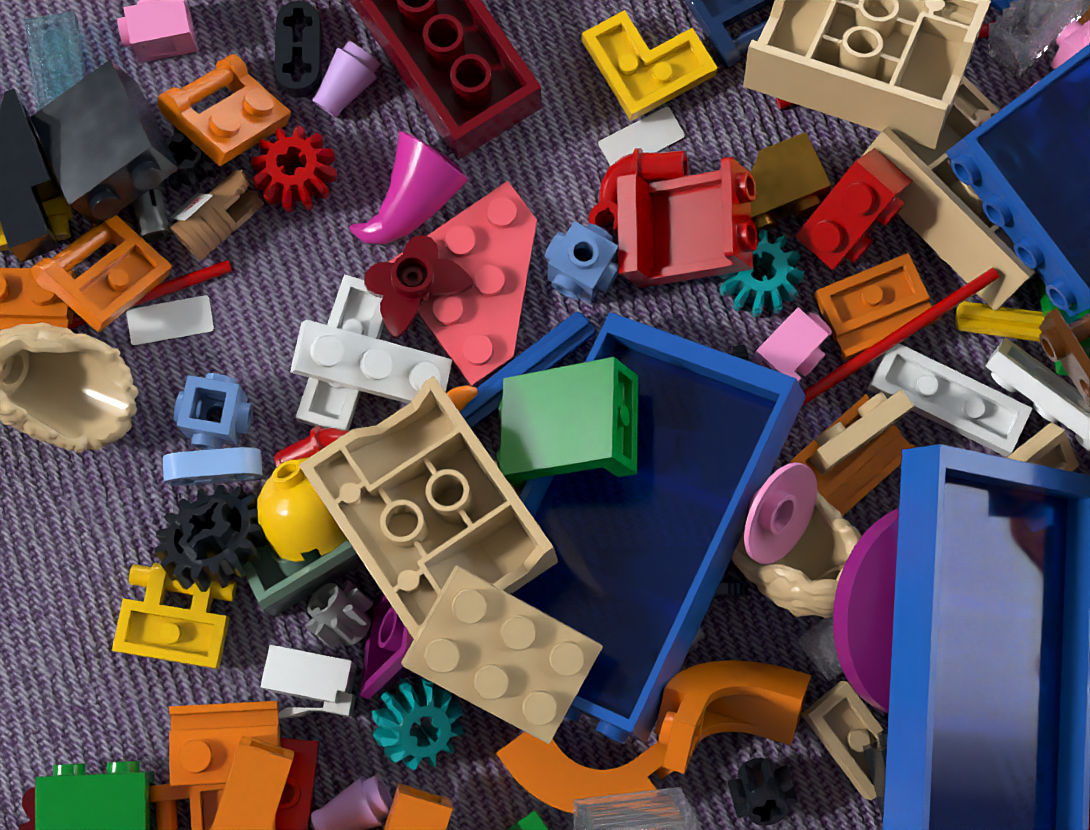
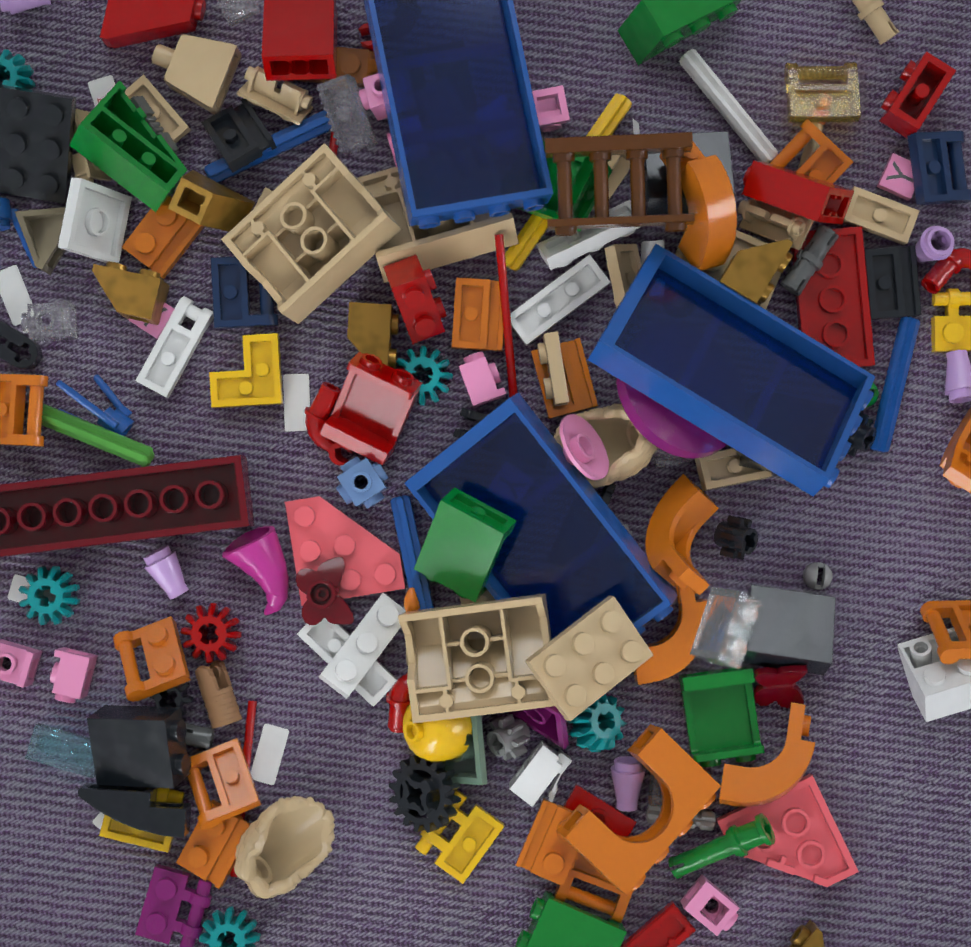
camera: 65 degrees left, 10 degrees up
(191, 206) = (206, 709): white sticker -> none
(204, 397) = (340, 768): medium blue brick -> none
(212, 466) = (378, 771): light blue beam -> none
(287, 48) = (133, 583): black beam -> none

